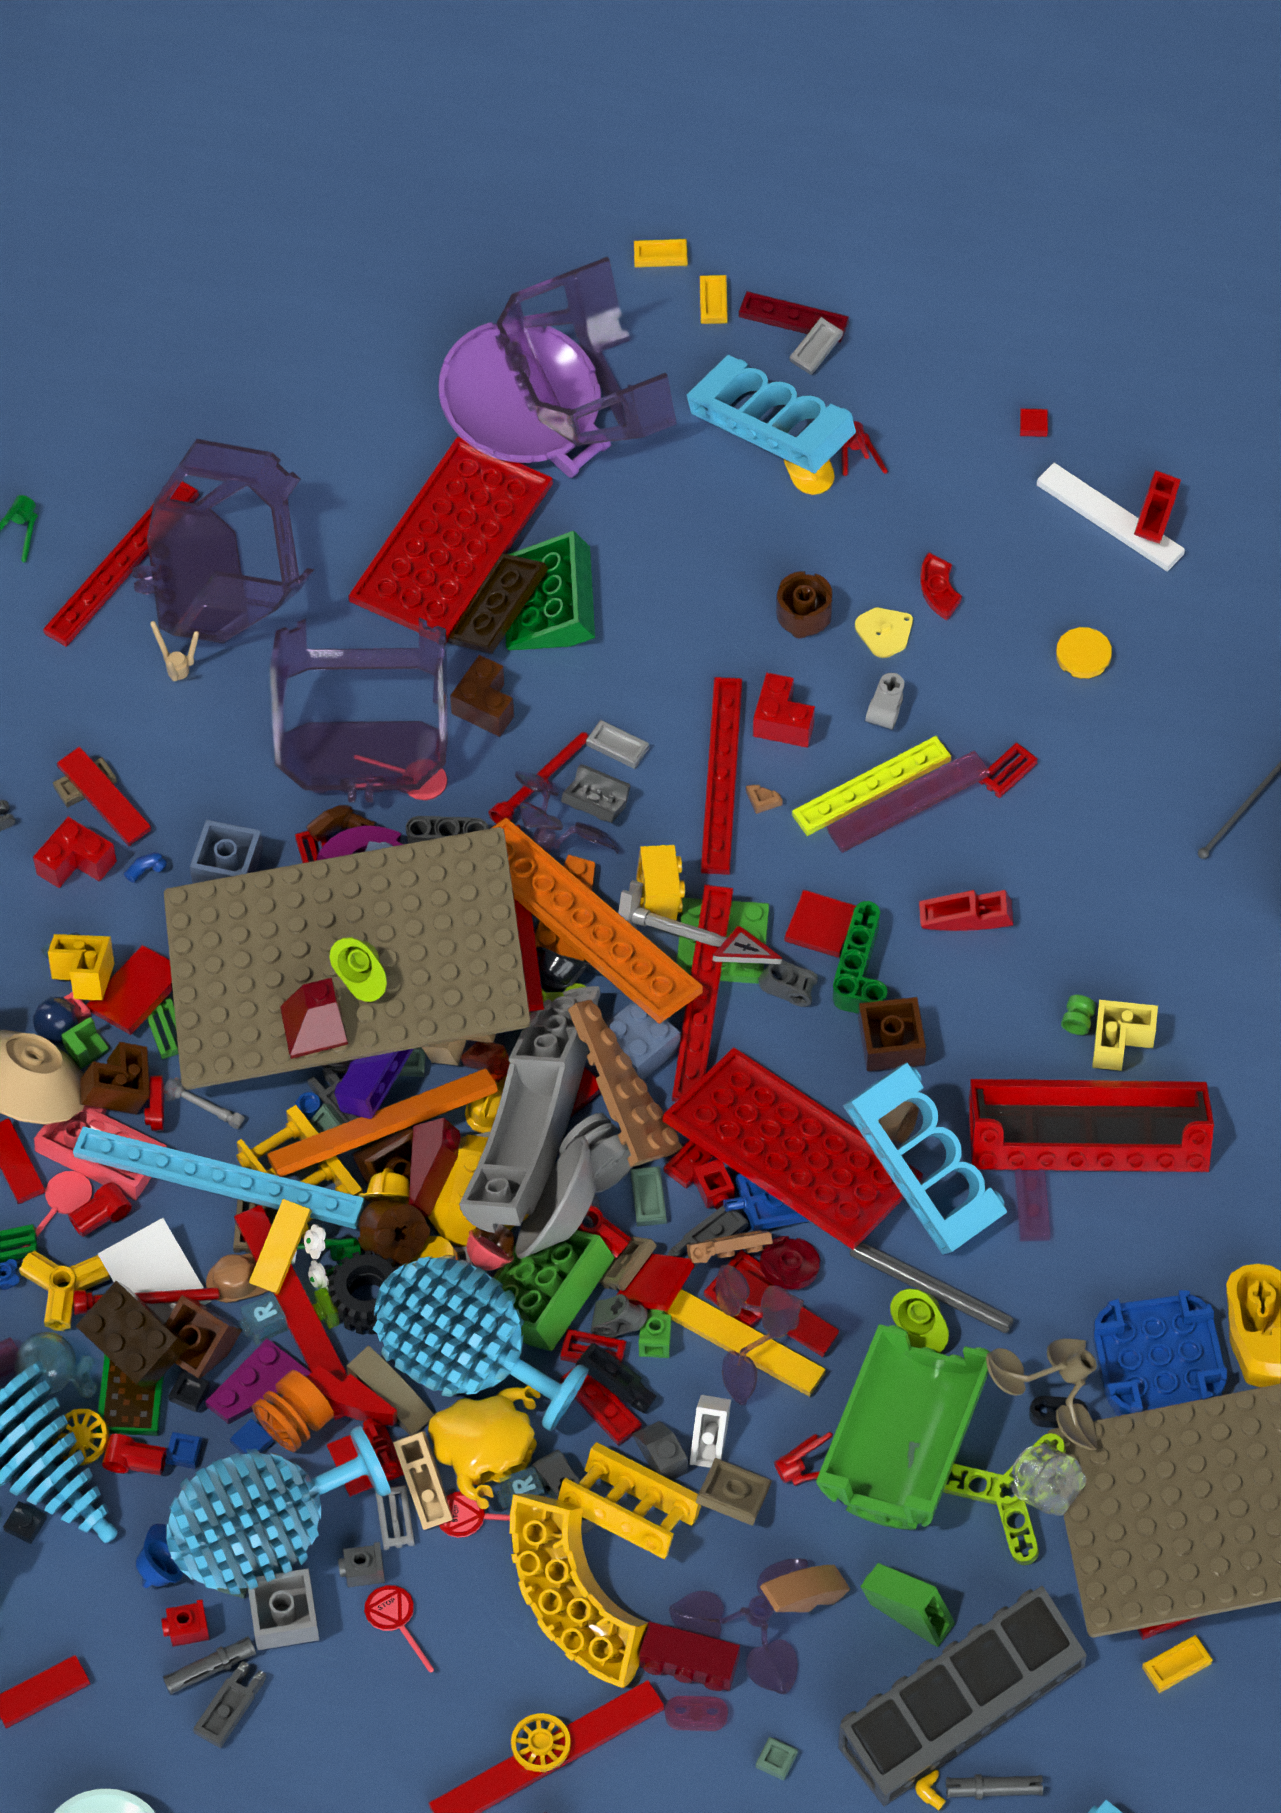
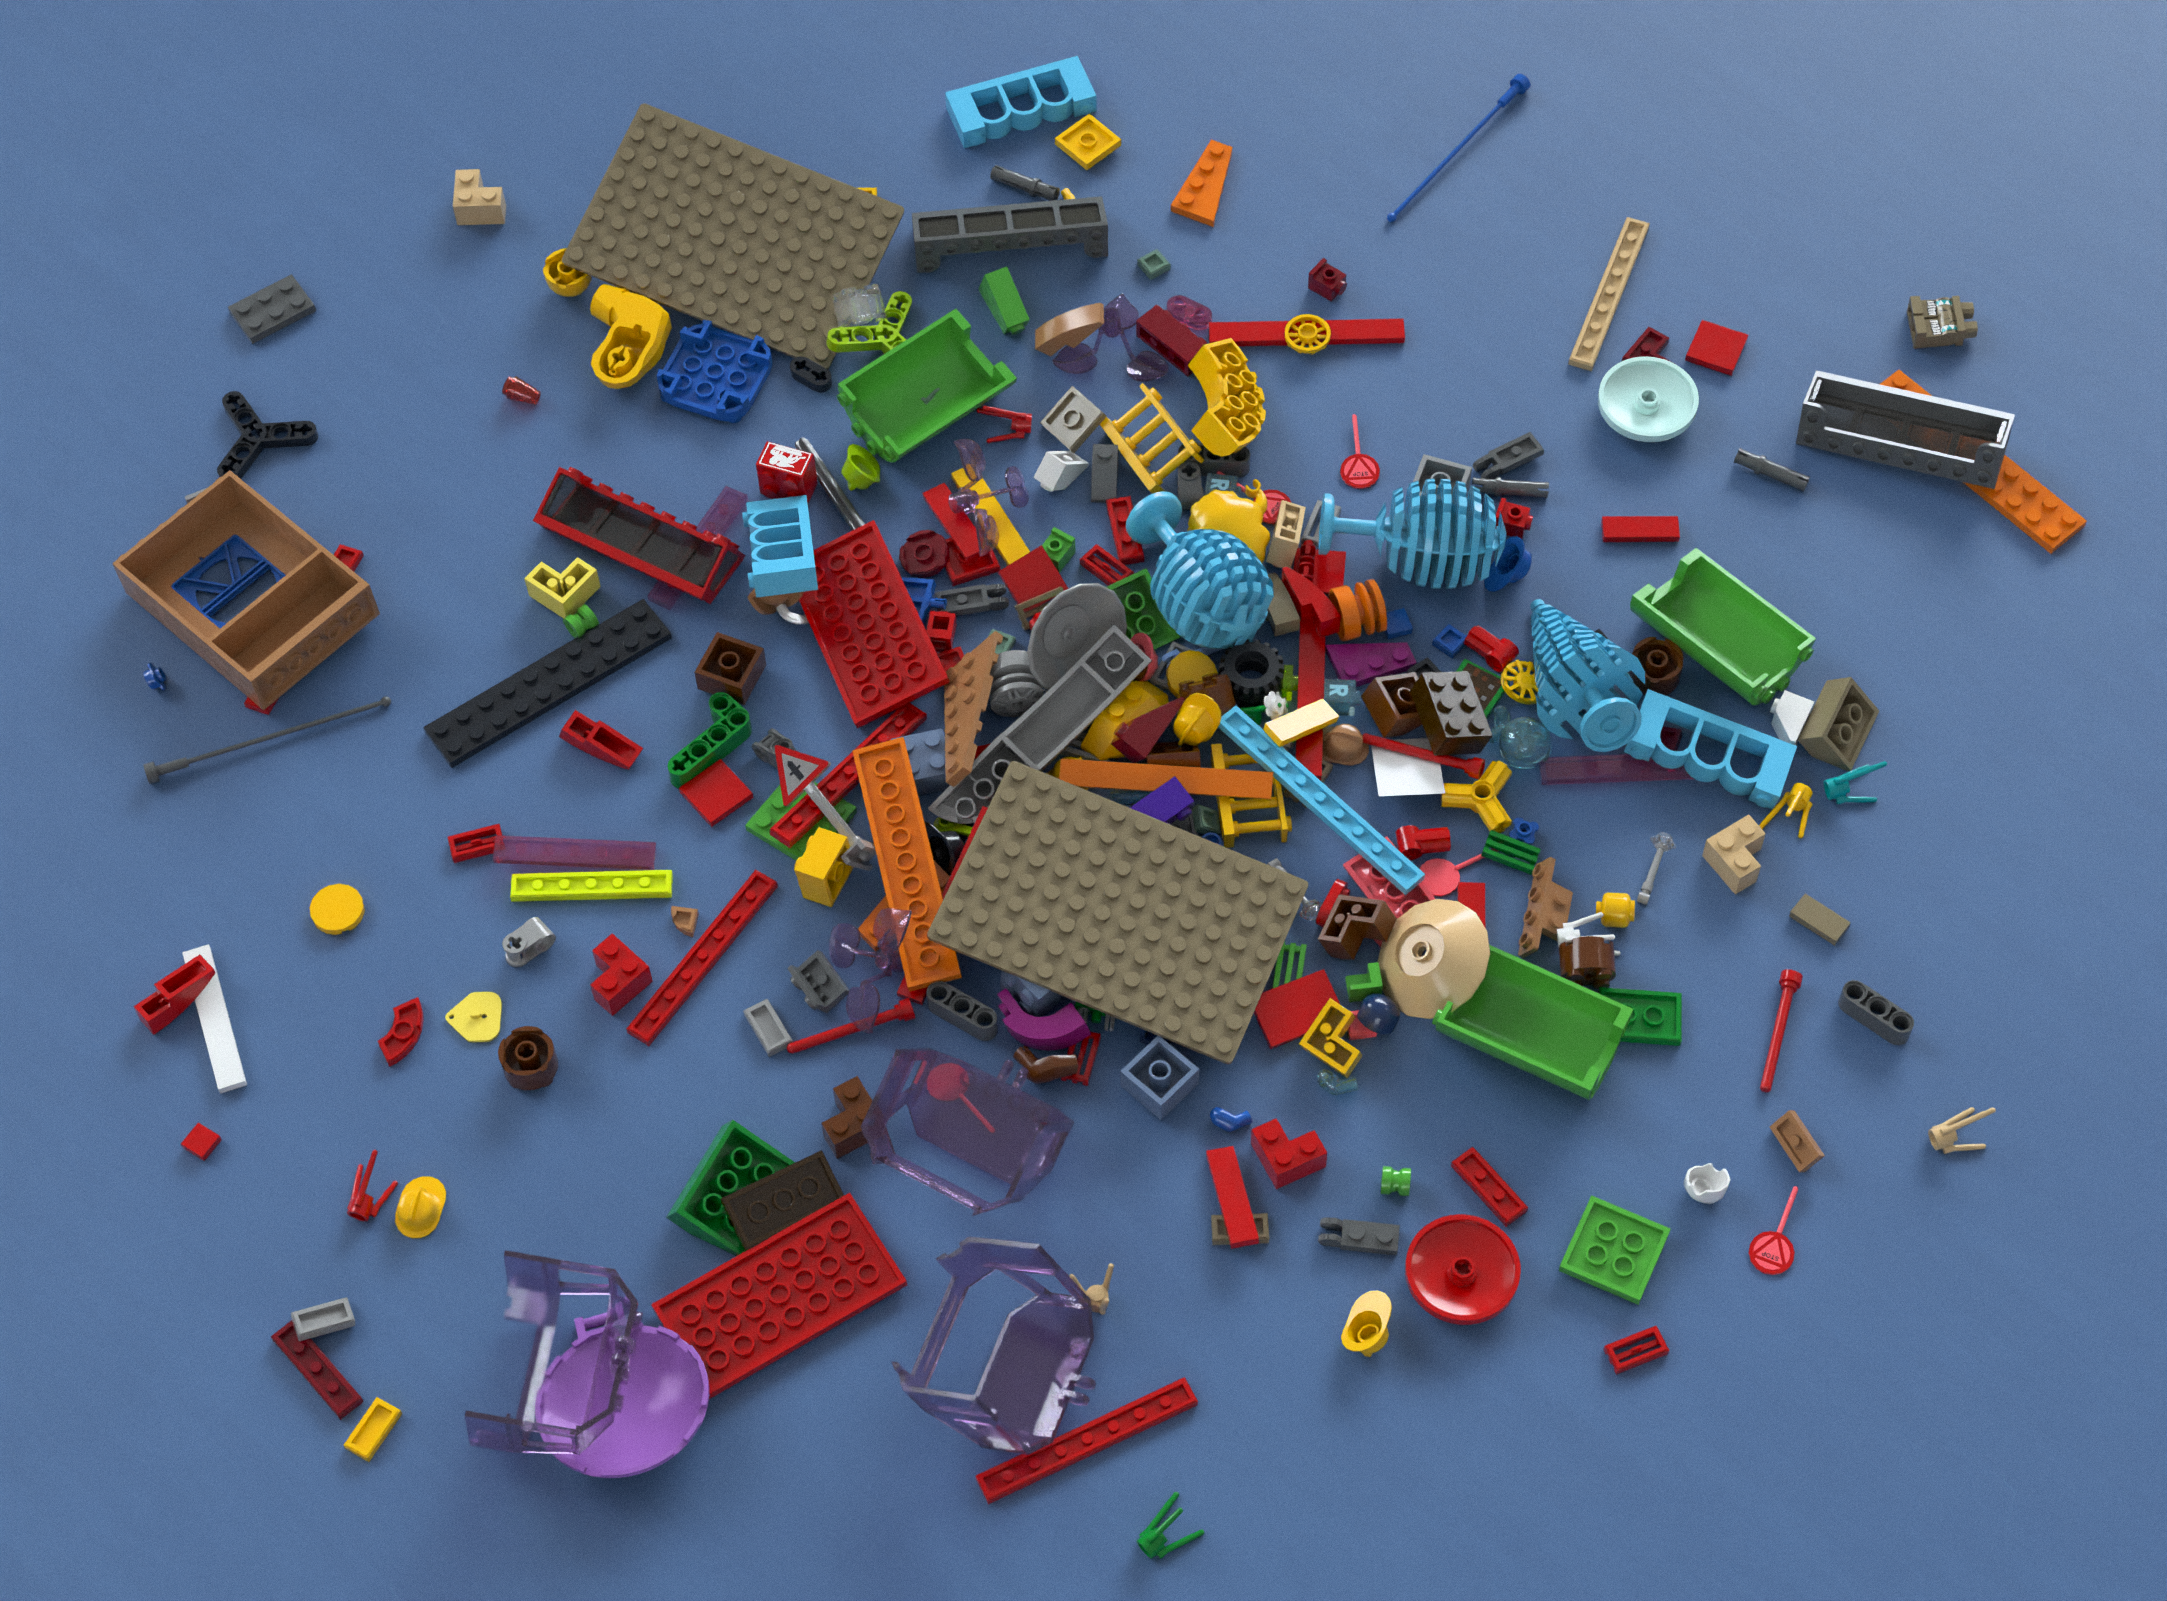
camera: 150 degrees left, 0 degrees up
(313, 1019) = (1178, 858): dark red slope -> none
(359, 968) = (1116, 869): lime piece -> none
(365, 1574) = (1363, 498): dark grey brick -> none
(616, 1377) = (1106, 532): black hinge -> none
(617, 1316) = (1078, 567): dark grey piece -> none
(660, 253) = (382, 1510): yellow tile -> none
(726, 1246) = (961, 574): medium nougat hinge -> none
(734, 377) = (400, 1183): medium azure fence -> none
(988, 1260) = (786, 472): none -> red brick
(1063, 949) = (547, 683): none -> black plate
(1073, 1365) = (790, 352): dark tan plant -> none

